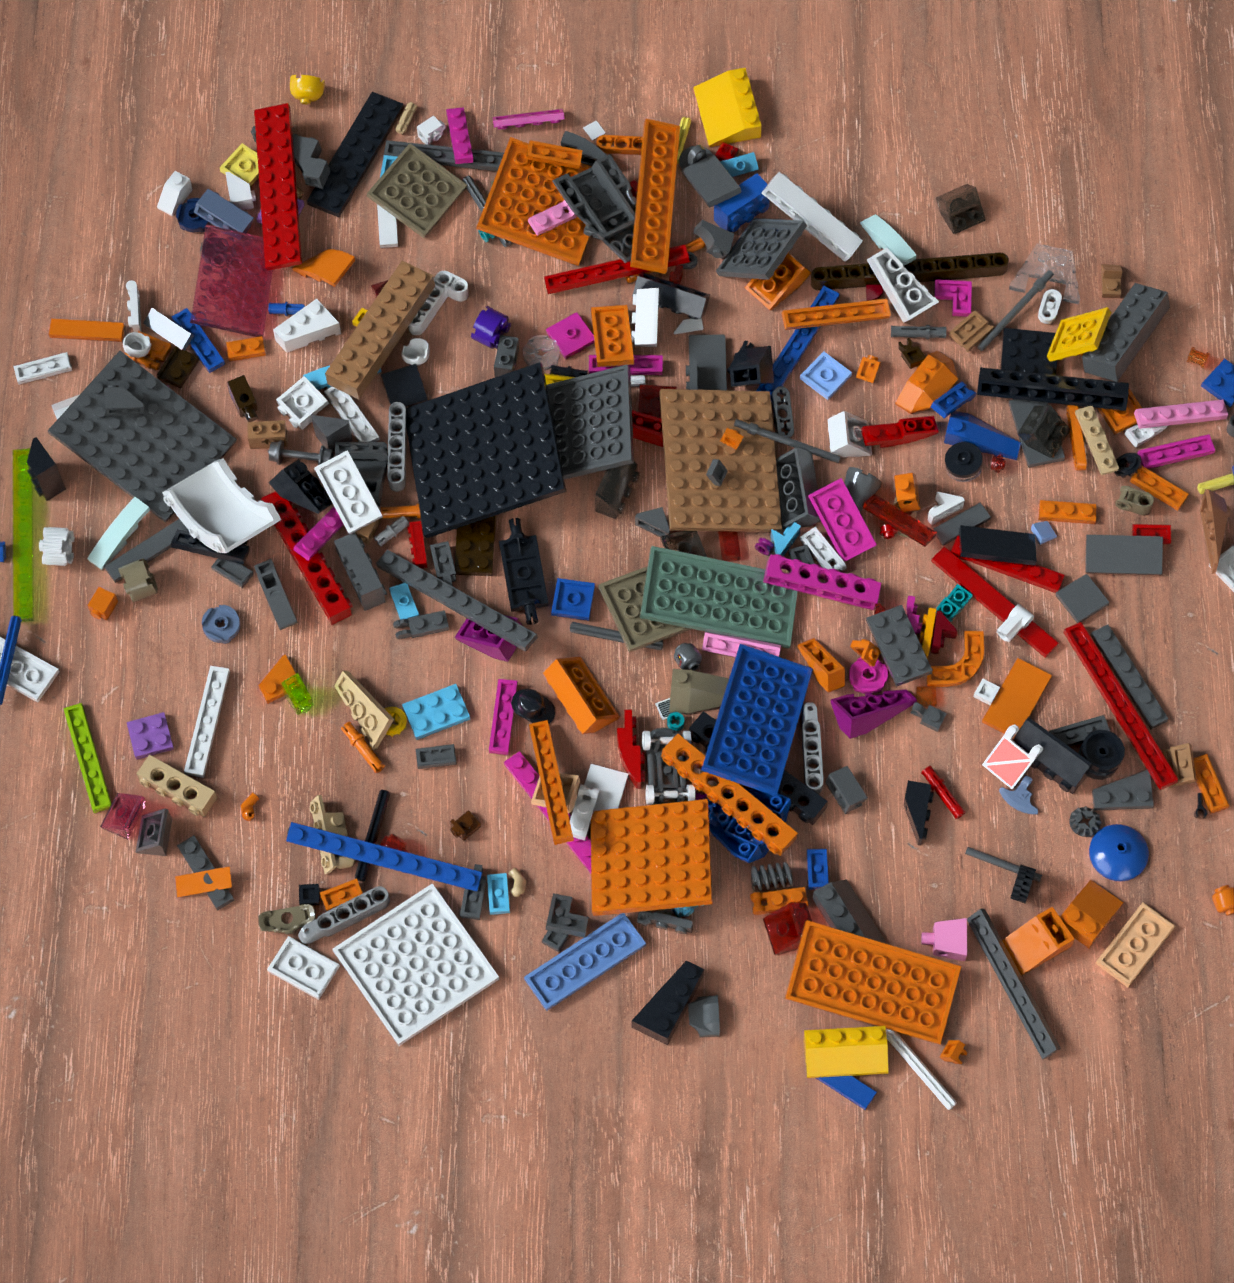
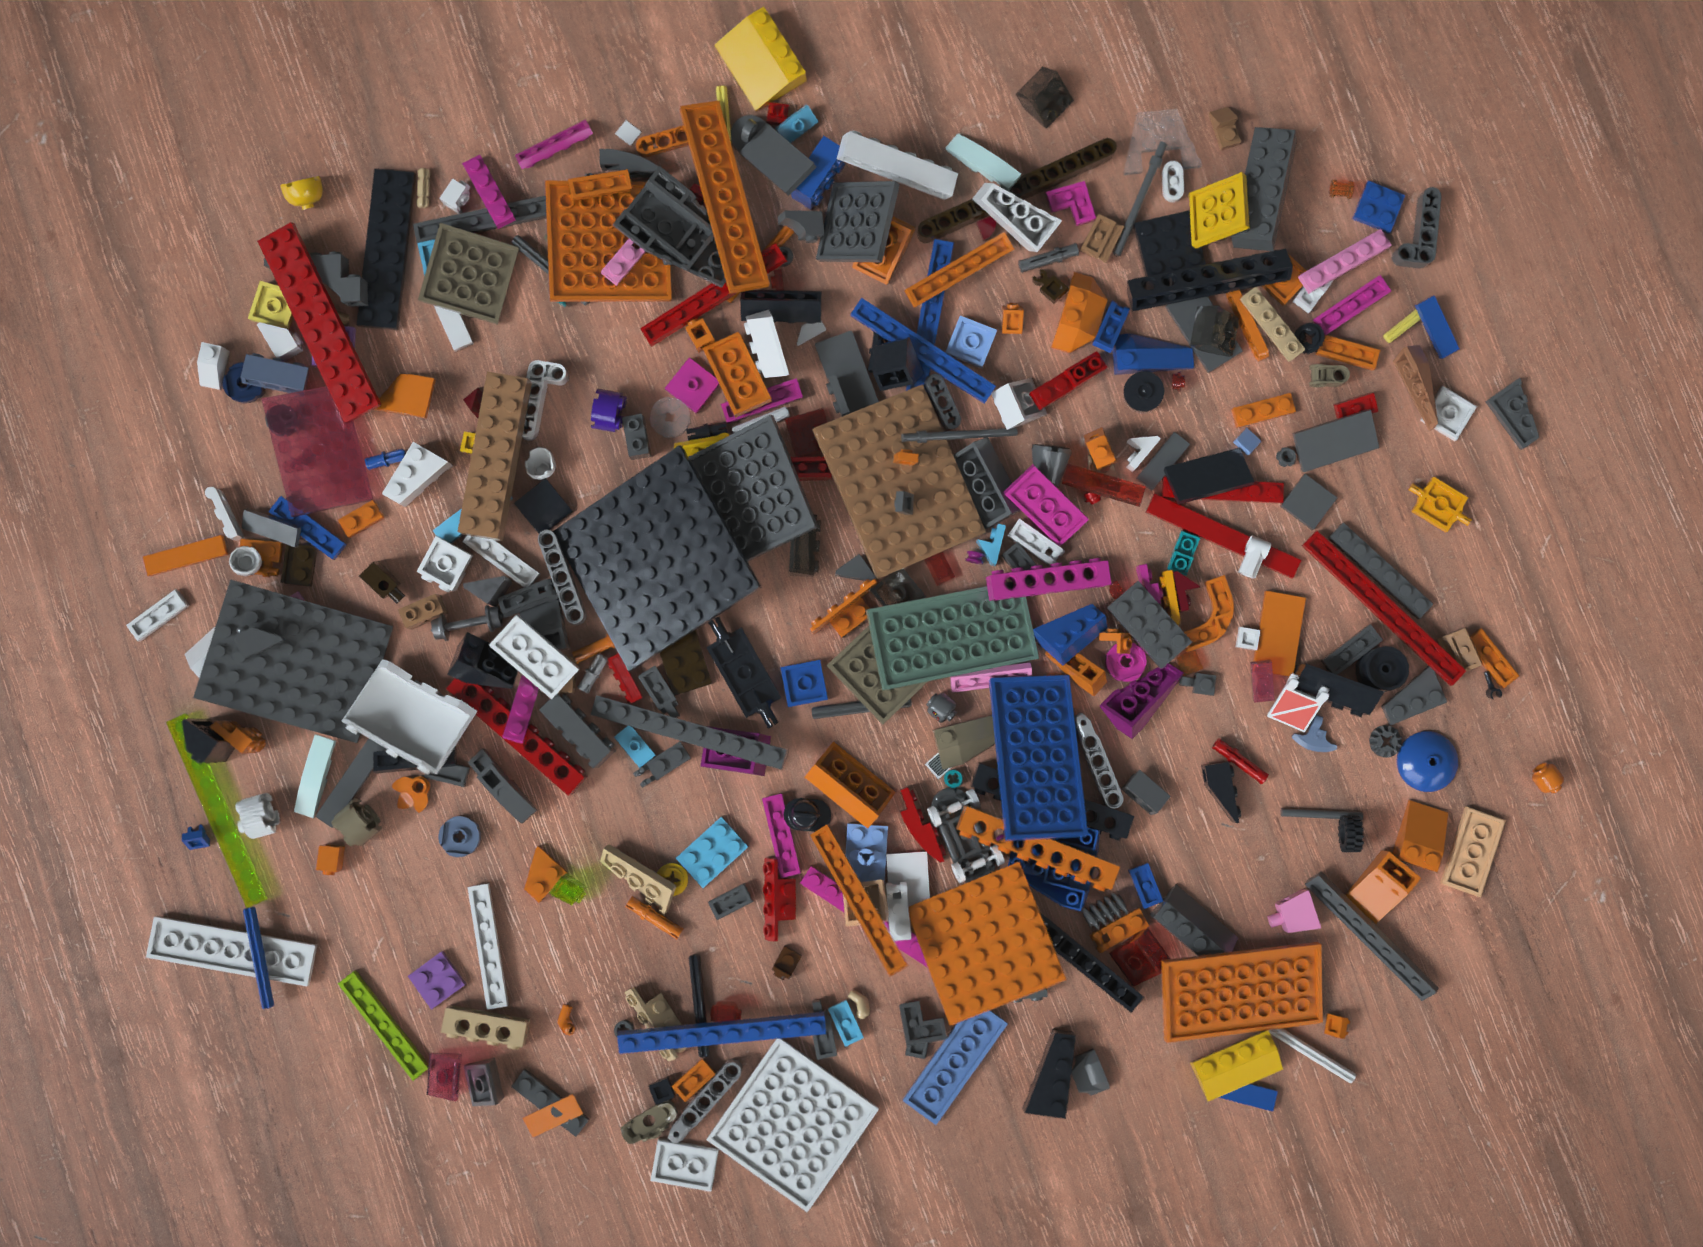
camera: 25 degrees left, 20 degrees up
(72, 479) = (243, 739): none -> orange plate
(193, 577) = (410, 794): none -> orange plate
(480, 768) = (779, 899): none -> red bracket
(576, 753) = (867, 850): none -> light blue plate
(592, 296) = (696, 326): none -> orange brick
(630, 551) = (848, 614): none -> orange bracket
(741, 918) = (1092, 967): none -> black brick
(782, 367) = (926, 352): none -> blue plate
(826, 631) = (1071, 632): none -> blue wedge
(986, 729) = (1262, 681): none -> clear pink plate
(1074, 551) = (1286, 452): none -> dark grey plate
(1201, 637) = (1439, 504): none -> light orange plate

